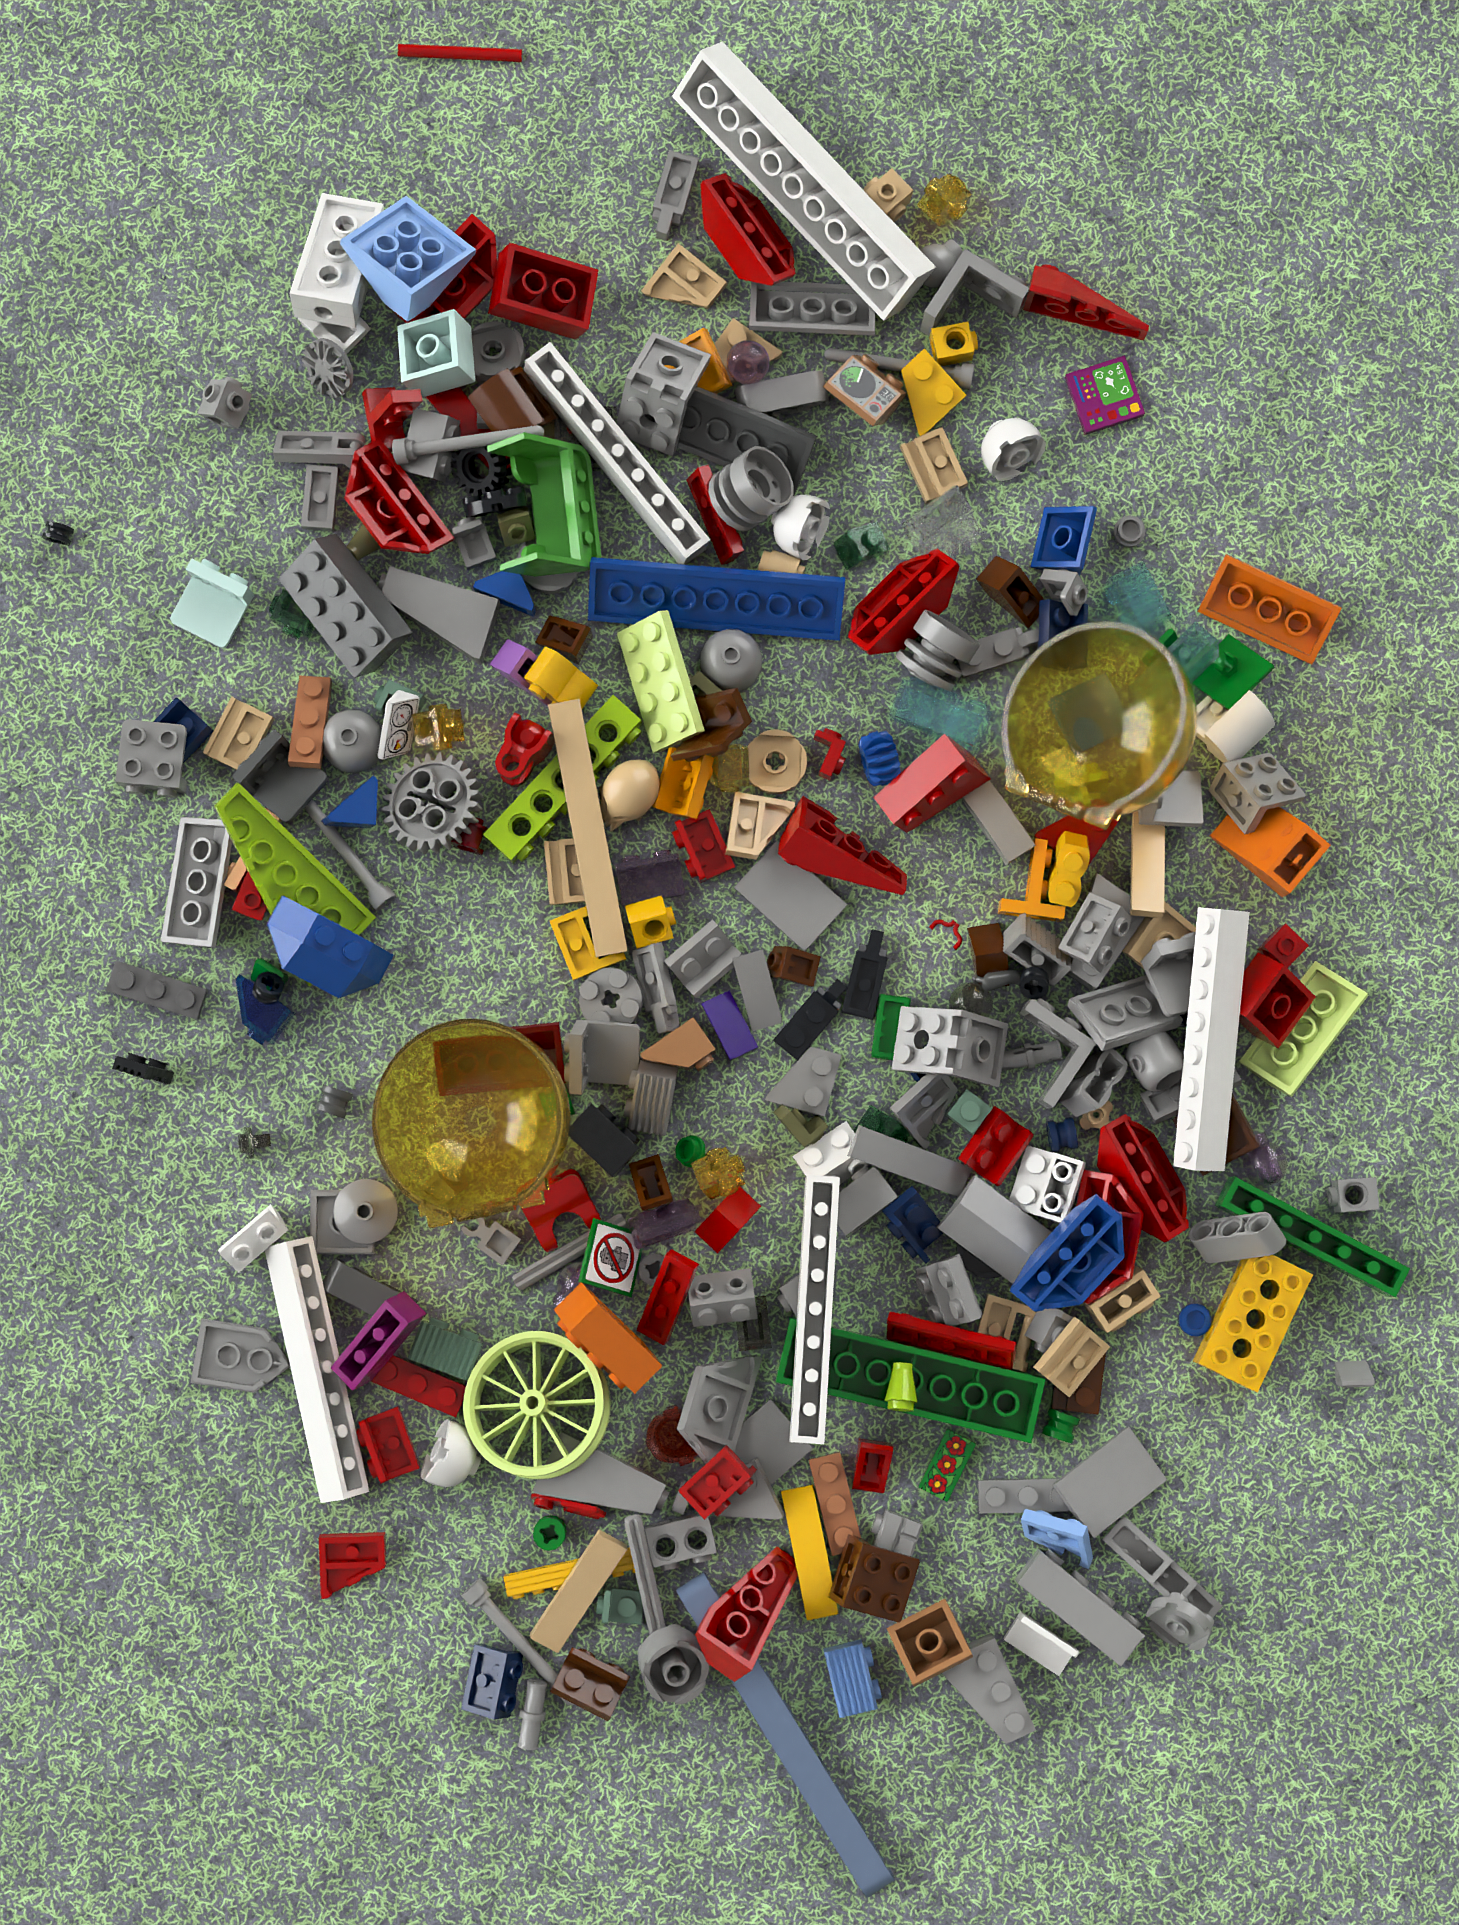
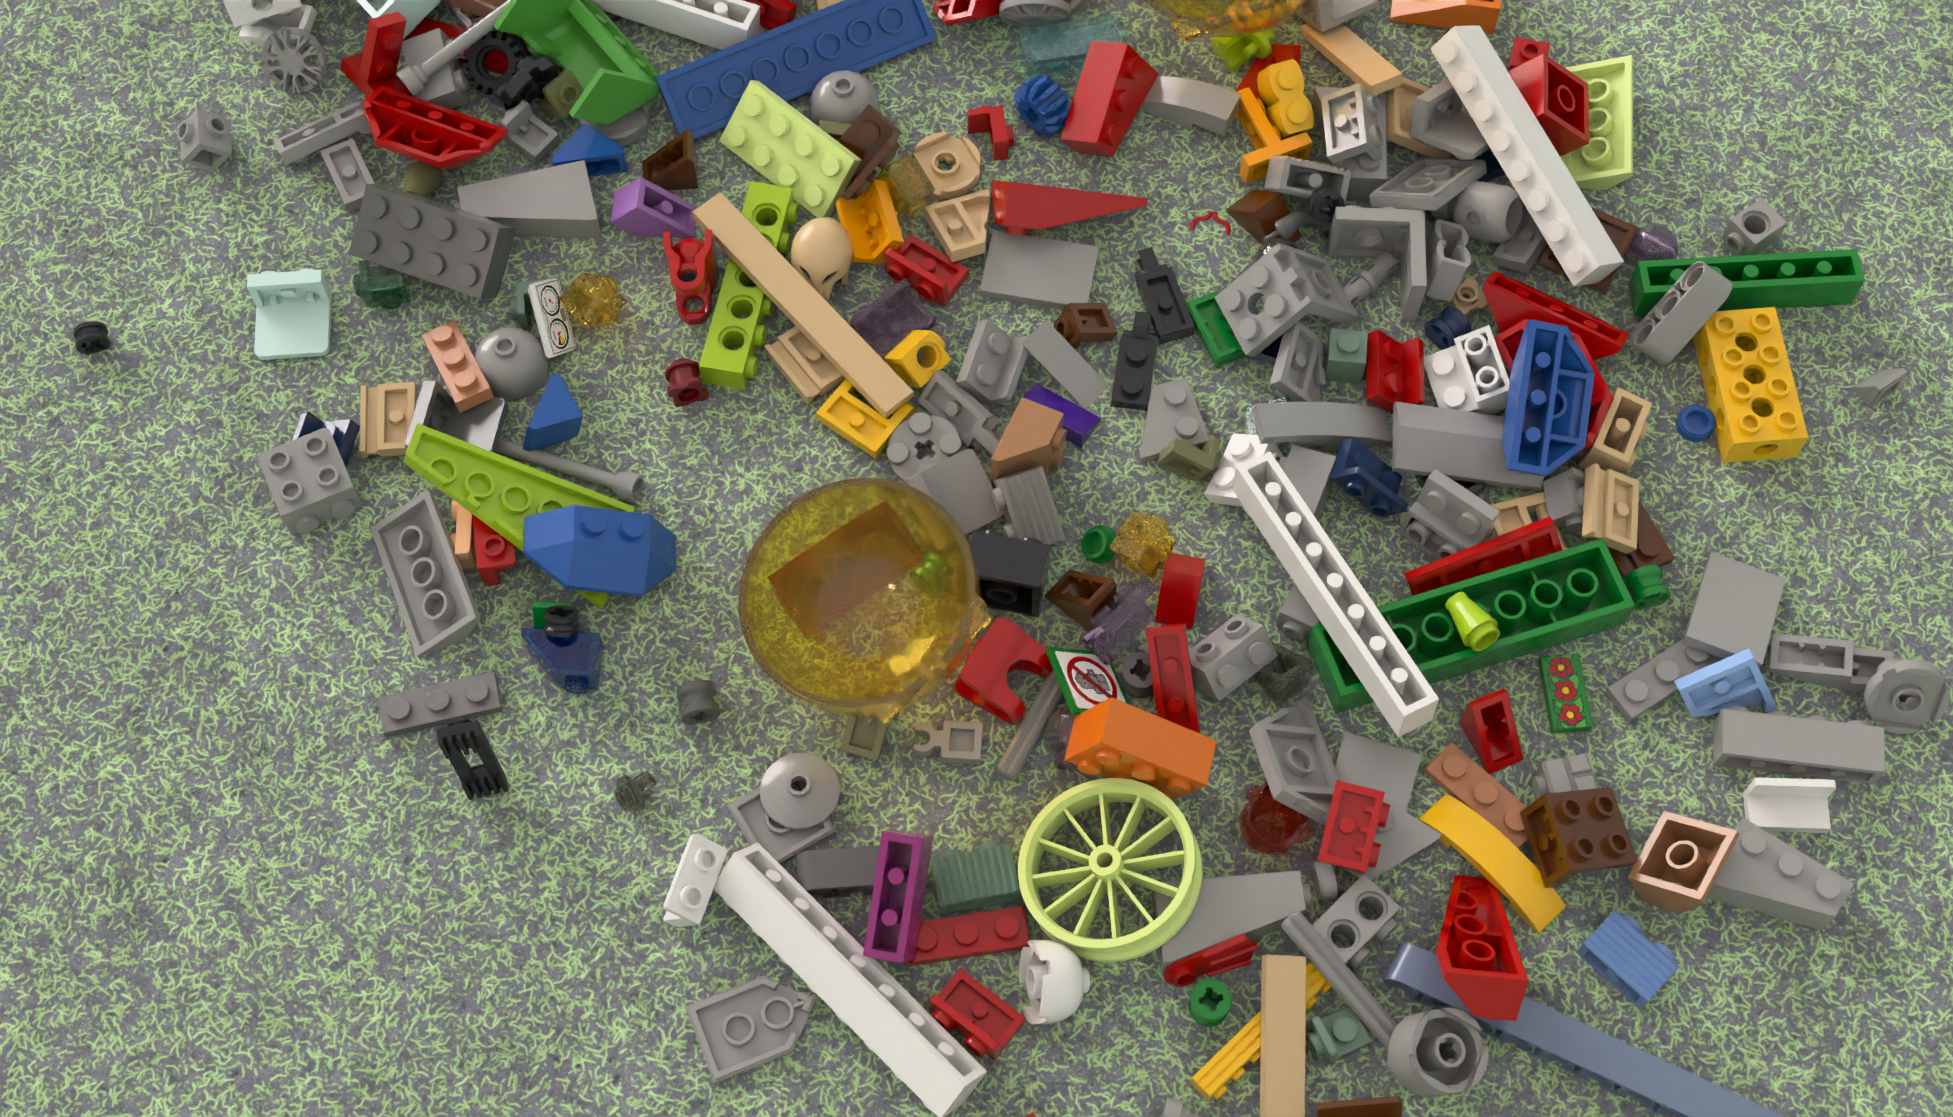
camera: 30 degrees left, 20 degrees down
(444, 777) = (629, 369): light grey gear -> none
(558, 679) = (682, 190): yellow brick -> none

